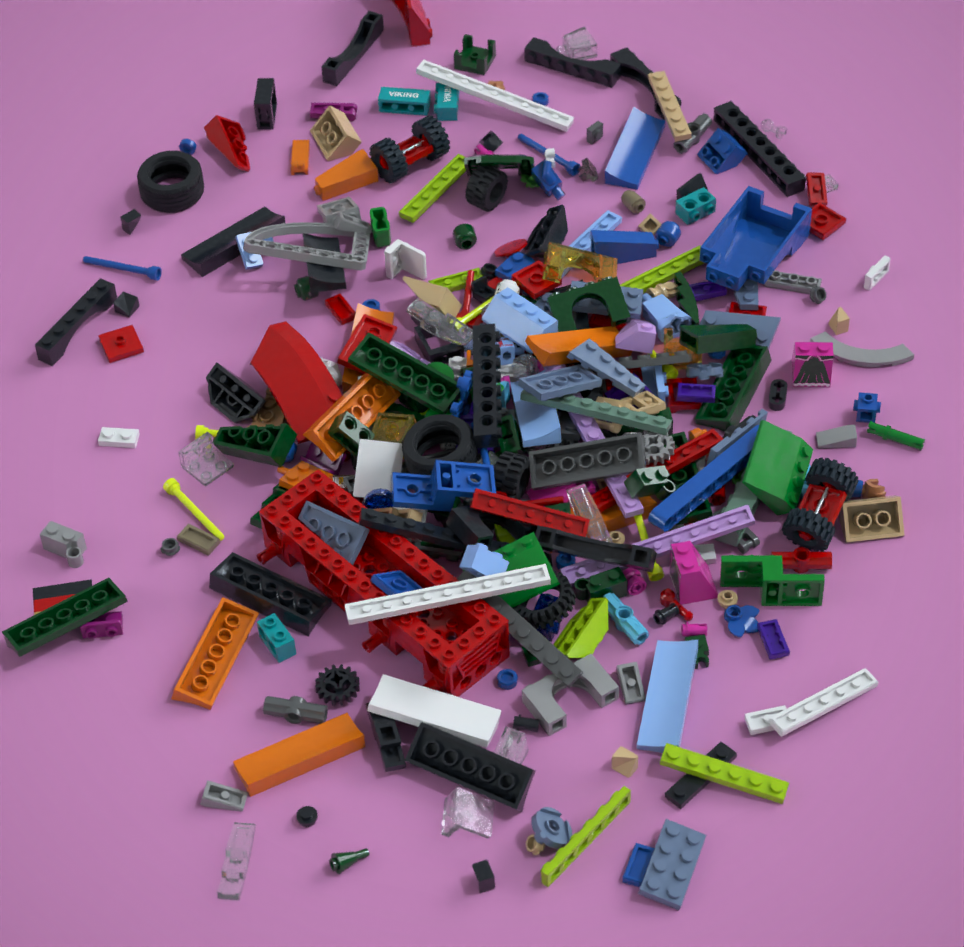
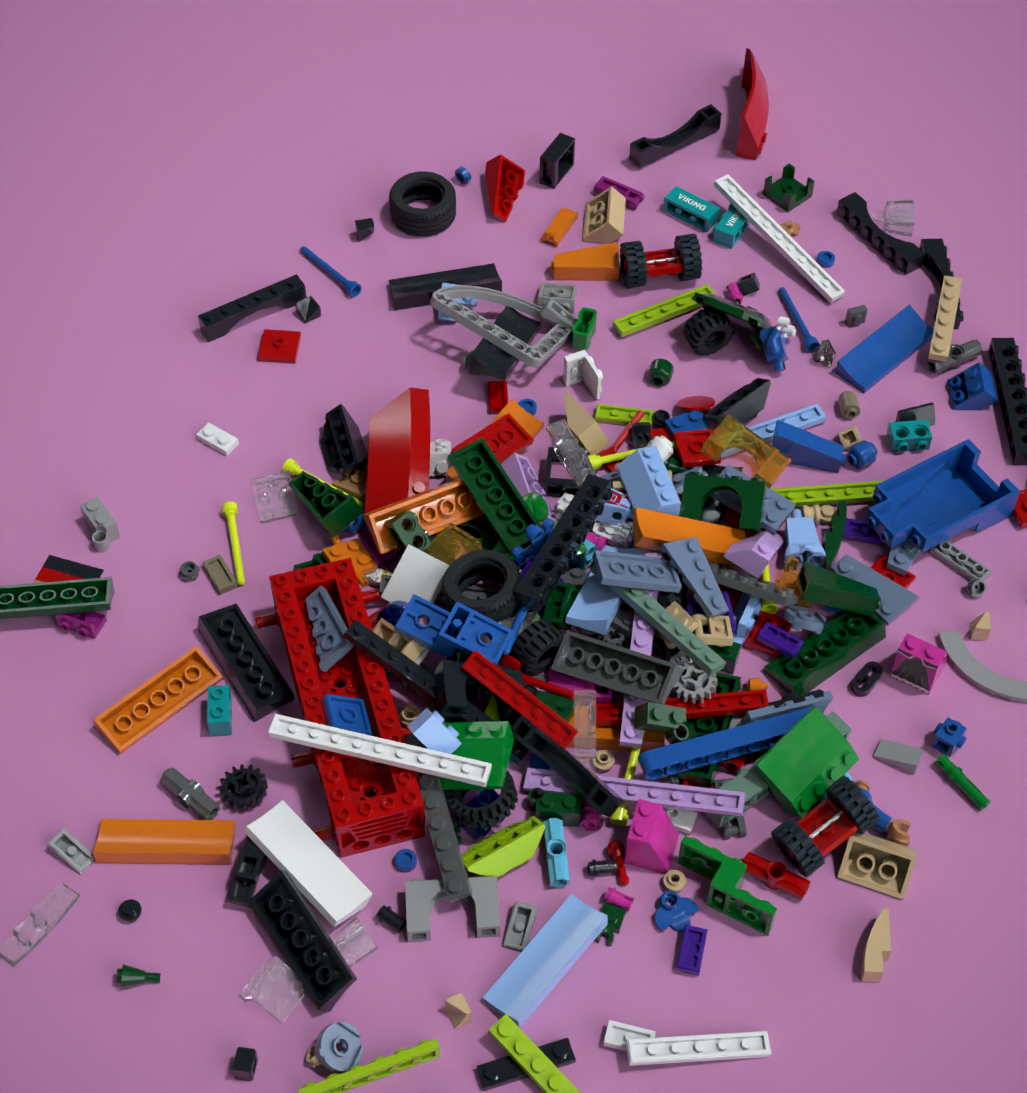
camera: 25 degrees right, 5 degrees up
(909, 576) = (877, 949): none -> tan slope

